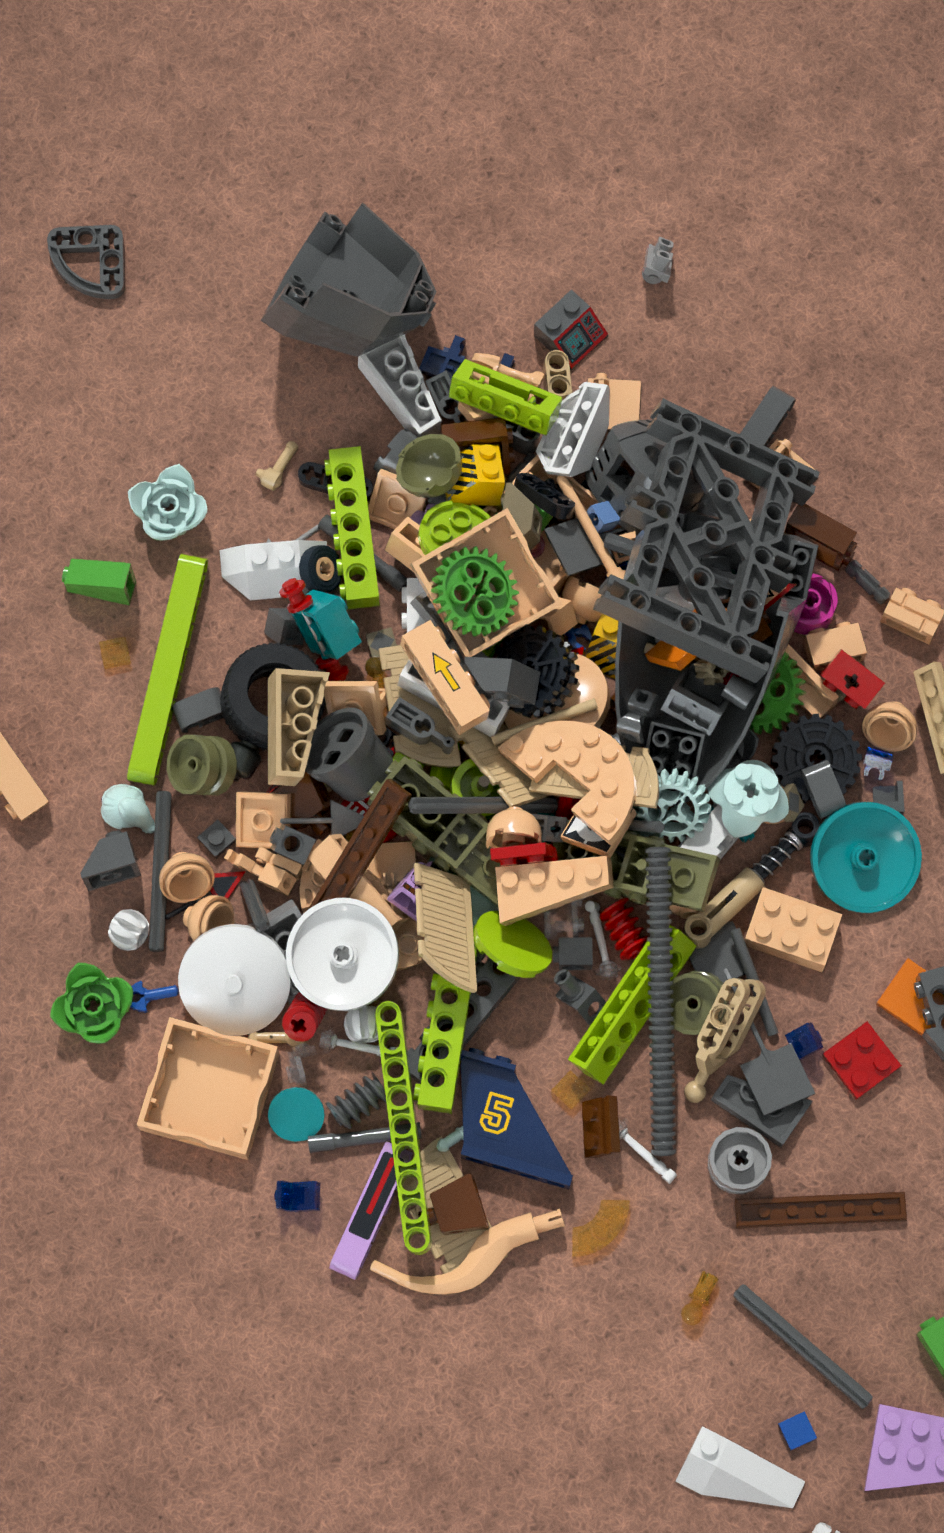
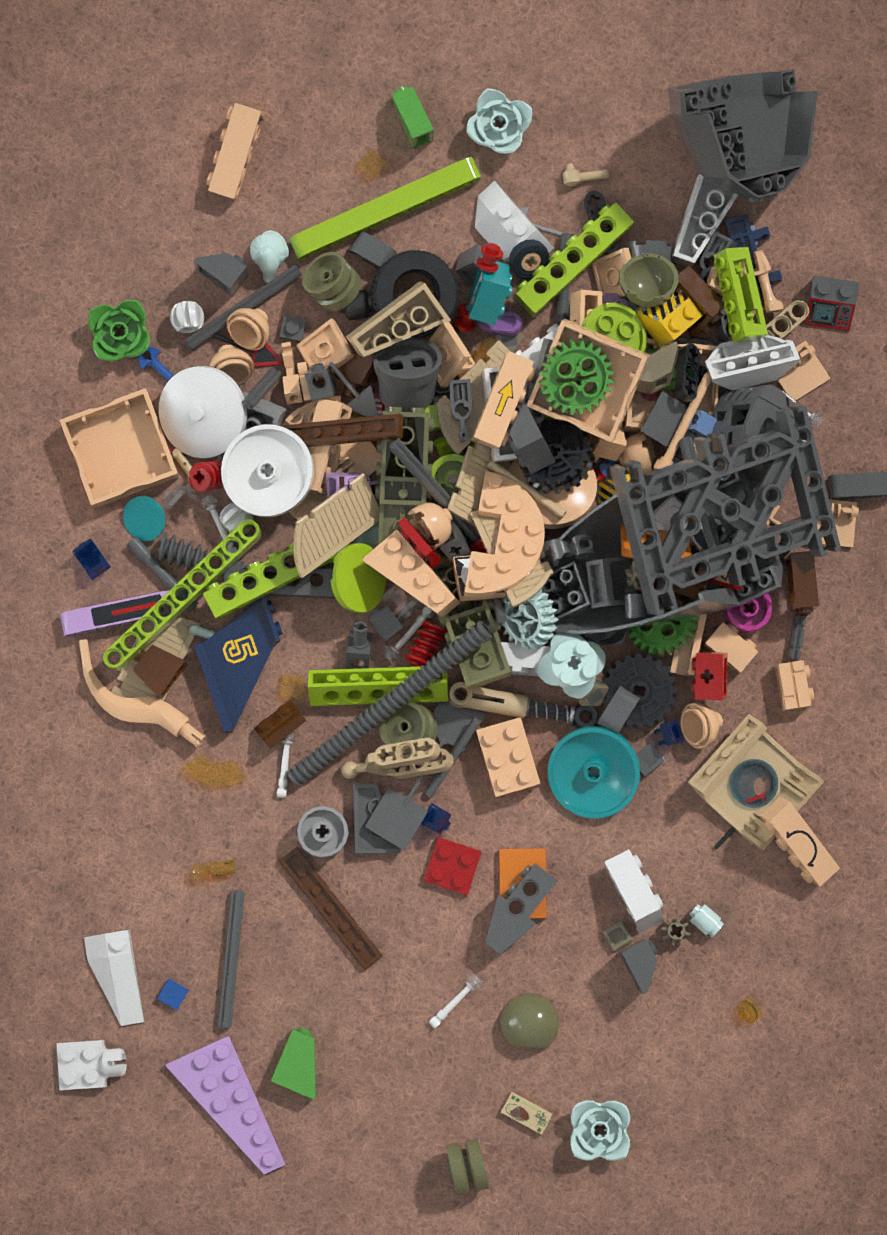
camera: 45 degrees right, 10 degrees up
(370, 633) = (508, 325): none -> medium lavender tile

